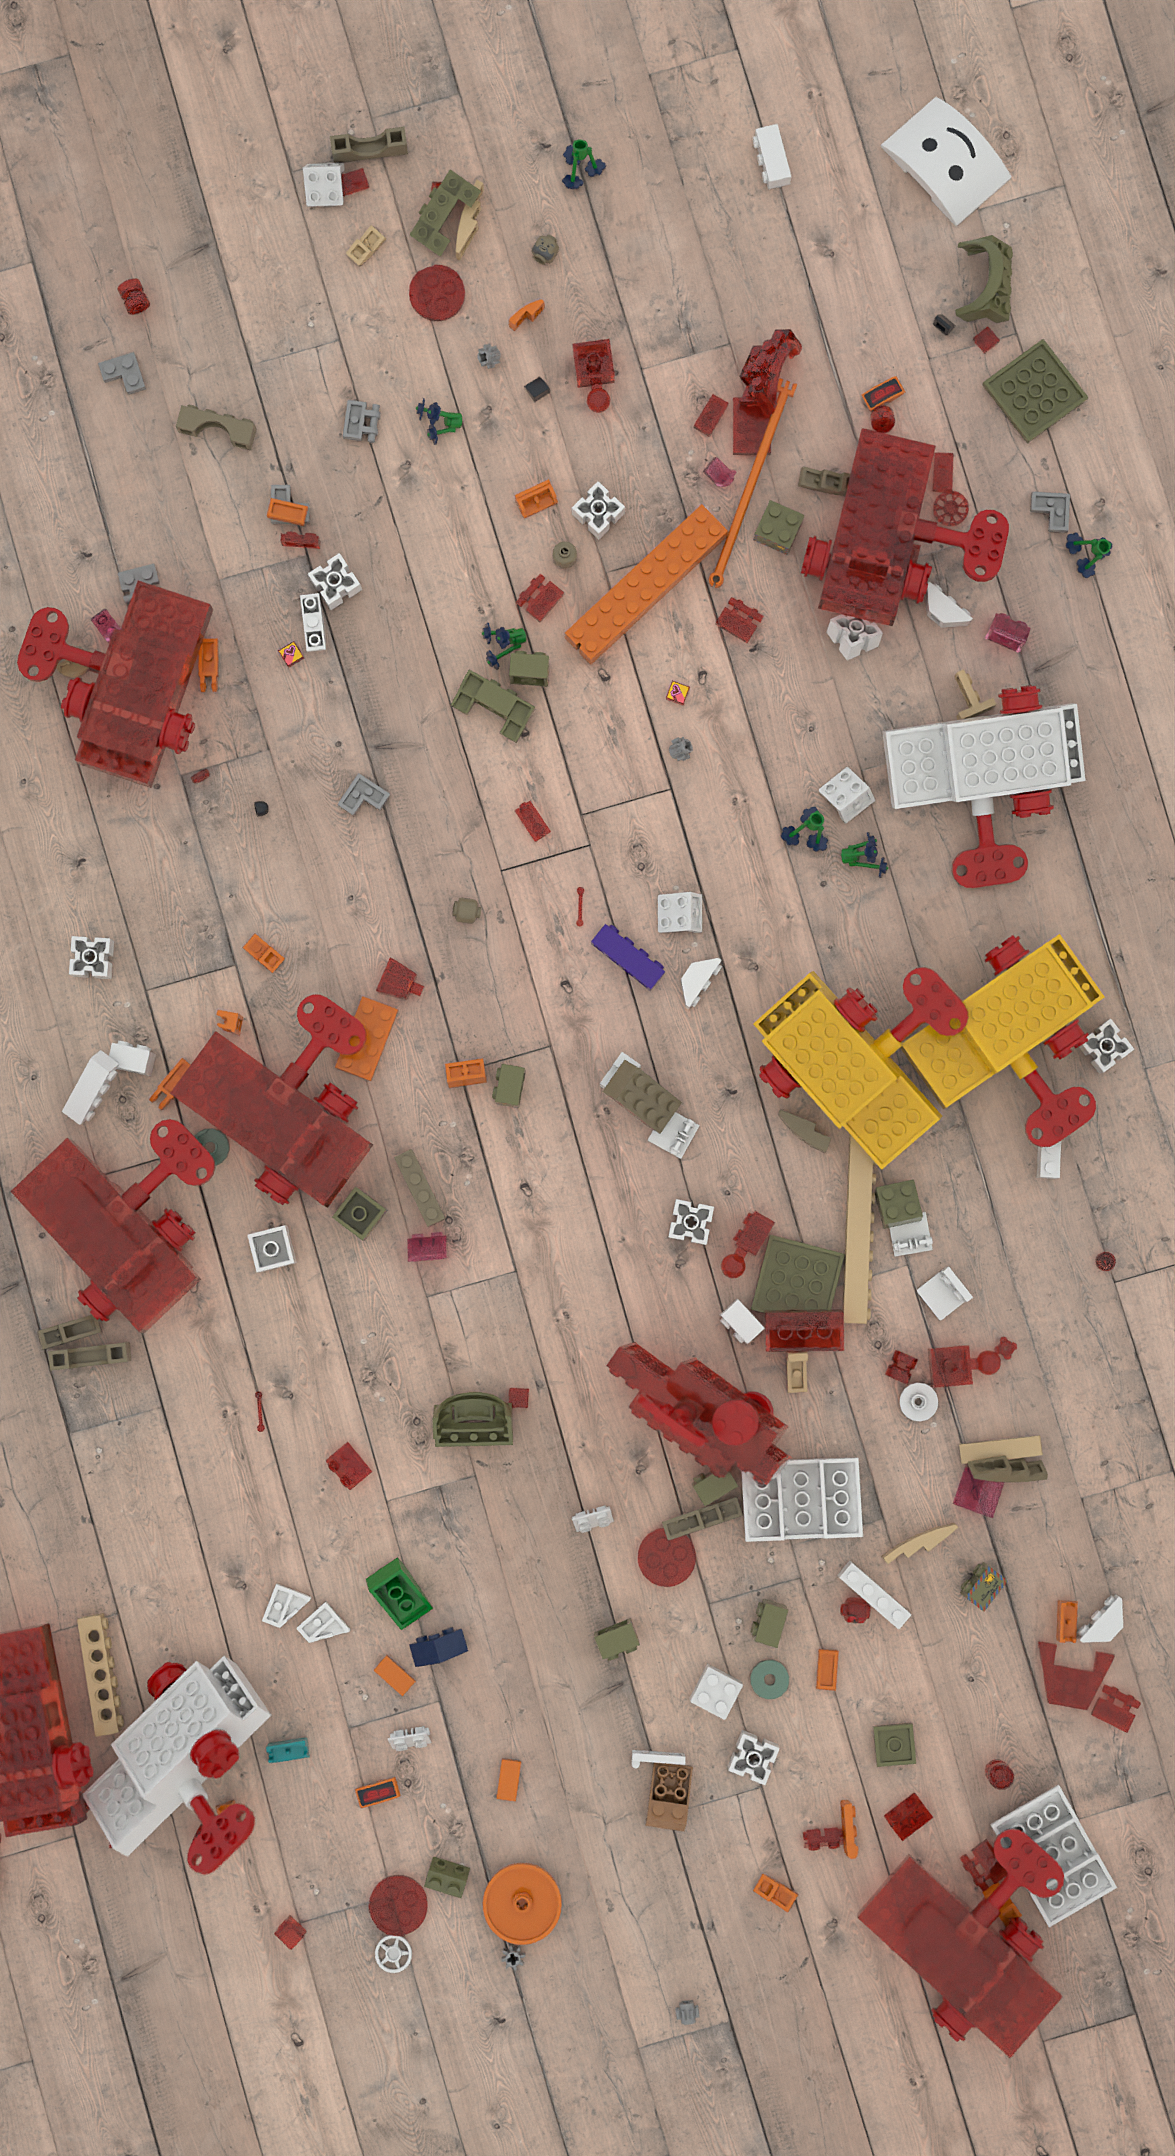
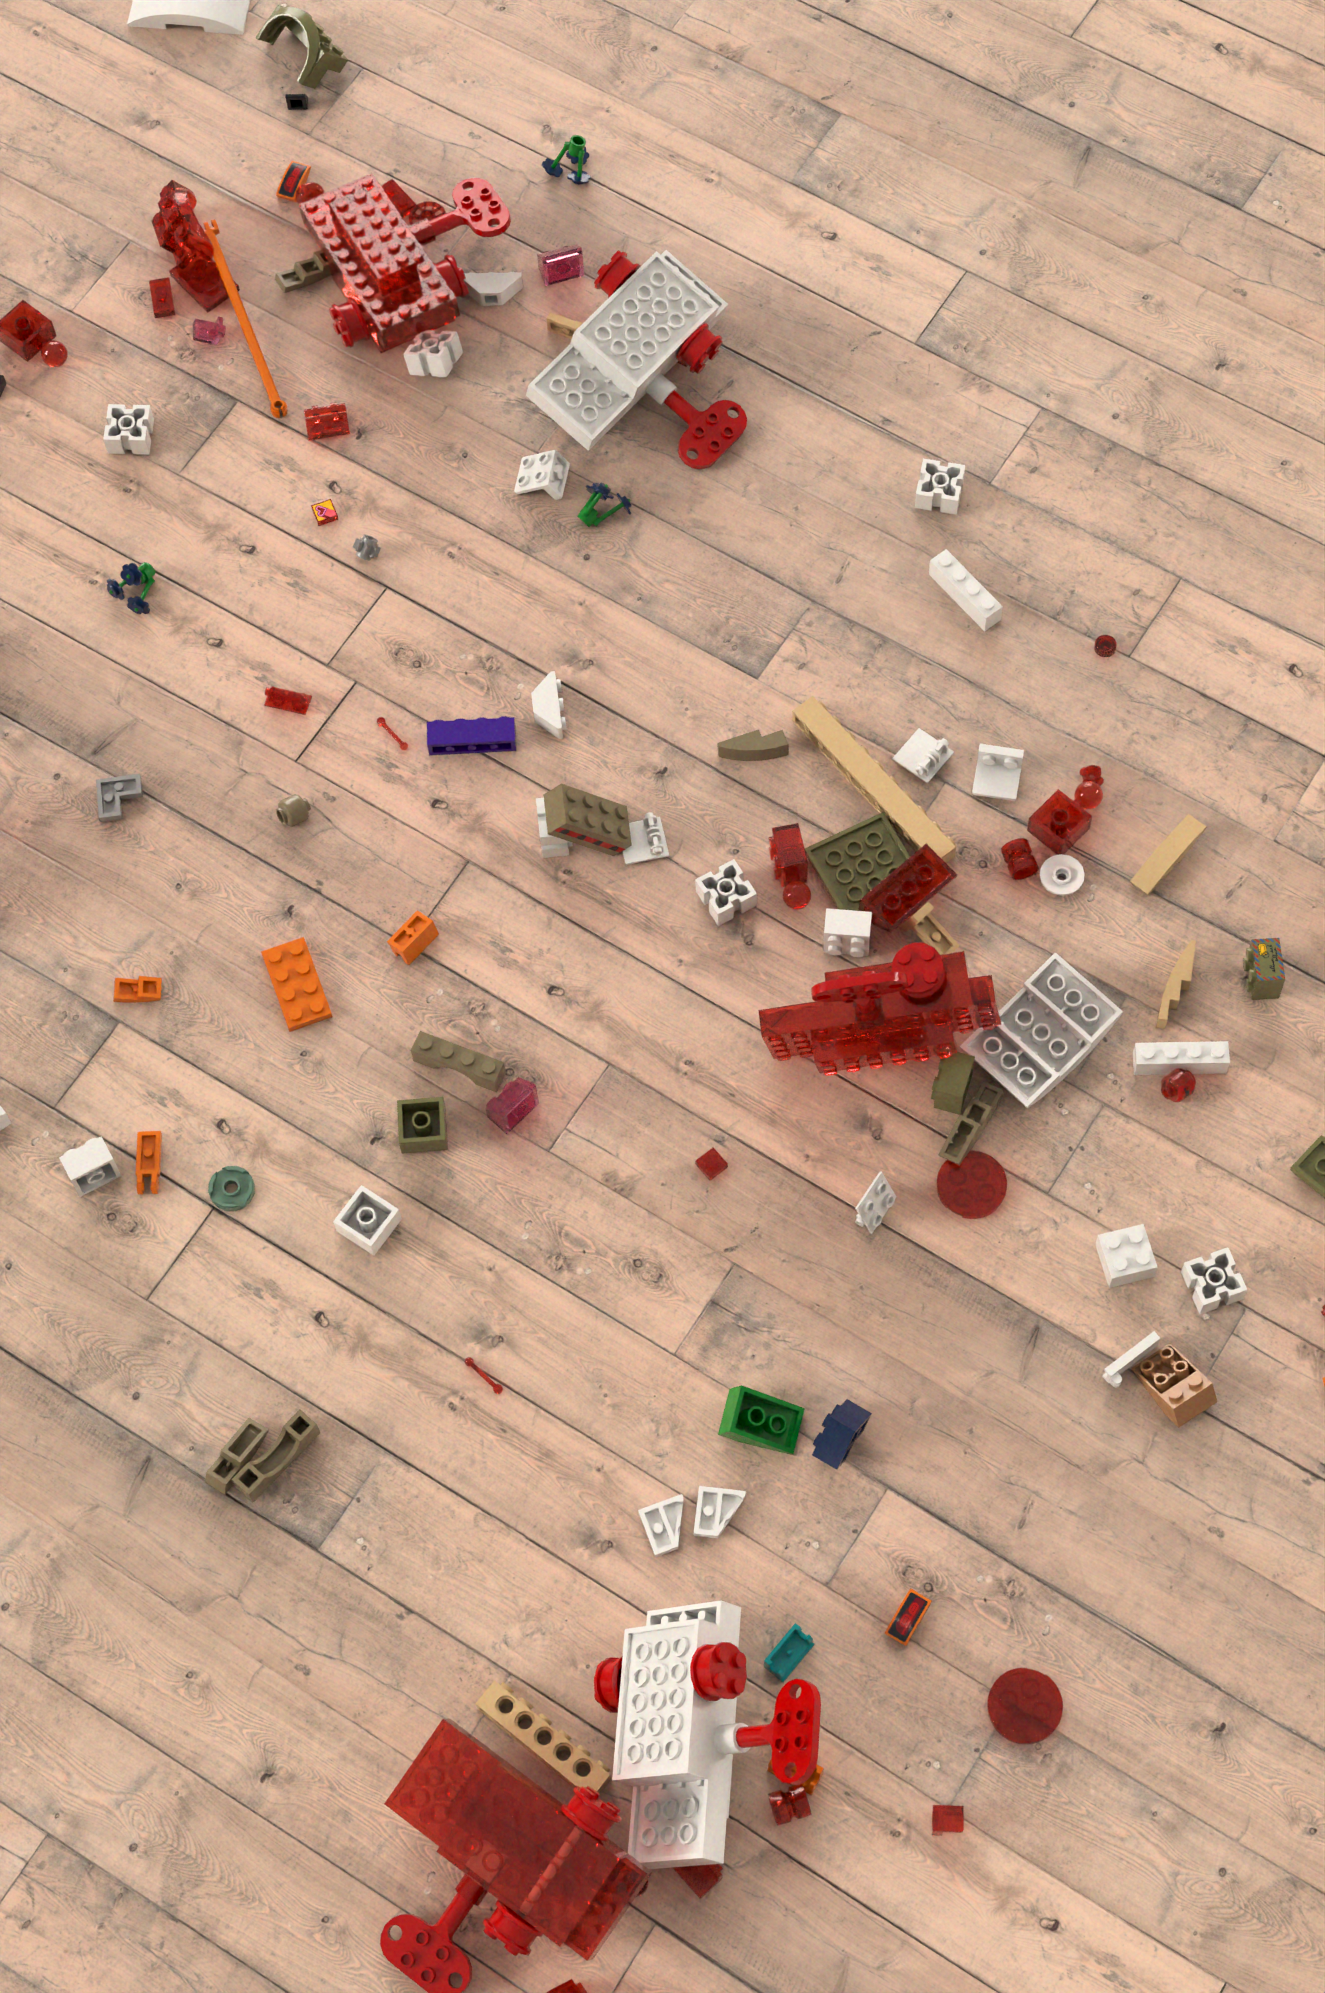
camera: 40 degrees left, 20 degrees down
(90, 1088) = (72, 1215): white brick -> none
(102, 1228) = (203, 1327): clear red piece -> none
(232, 1022) = (155, 1059): orange hinge -> none
(261, 808) = (30, 877): black hinge -> none
(273, 1117) = (275, 1103): clear red piece -> none
(348, 1466) = (610, 1351): clear red bracket -> none
(393, 1953) = (1062, 1754): white wheel -> none
(394, 1675) = (824, 1498): orange tile -> none
(398, 981) = (284, 913): clear red torso -> none
(402, 1742) = (892, 1538): white hinge -> none
(447, 1877) = (1045, 1637): olive bracket -> none
(472, 1407) = (681, 1200): olive piece -> none
(495, 699) = (168, 632): olive bracket -> none
(508, 1779) = (1017, 1499): orange tile -> none
(509, 1085) = (461, 911): olive brick -> none
(513, 1963) = (1170, 1660): light grey gear -> none
(522, 1903) = (1135, 1593): orange dish -> none
(529, 668) = (177, 584): olive brick -> none
(536, 499) = (65, 463): orange hinge -> none
(544, 601) = (143, 531): clear red plate -> none
(559, 557) = (129, 482): dark tan head -> none
(617, 1639) = (995, 1283): olive brick -> none
(646, 584) = (221, 453): orange piece -> none
(680, 912) = (483, 668): white bracket -> none
(769, 1622) = (1114, 1154): olive brick -> none
(772, 156) = (44, 90): white brick -> none
(774, 1690) = (1167, 1196): sand green tile -> none
(778, 527) = (296, 331): olive brick -> none
(812, 820) = (528, 515): plant -> none
(827, 1669) = (1203, 1157): orange tile -> none
(846, 1071) = (745, 654): yellow piece -> none
(898, 1204) = (890, 735): olive brick -> none
(978, 1494) = (1185, 902): clear pink slope -> none
(986, 340) = (342, 87): clear red tile -> none
(1003, 1470) = (1188, 861): dark tan slope -> none
(1006, 1022) = (837, 520): yellow piece -> none
(1035, 391) = (417, 91): olive plate -> none
(1056, 505) = (512, 153): light grey plate -> none

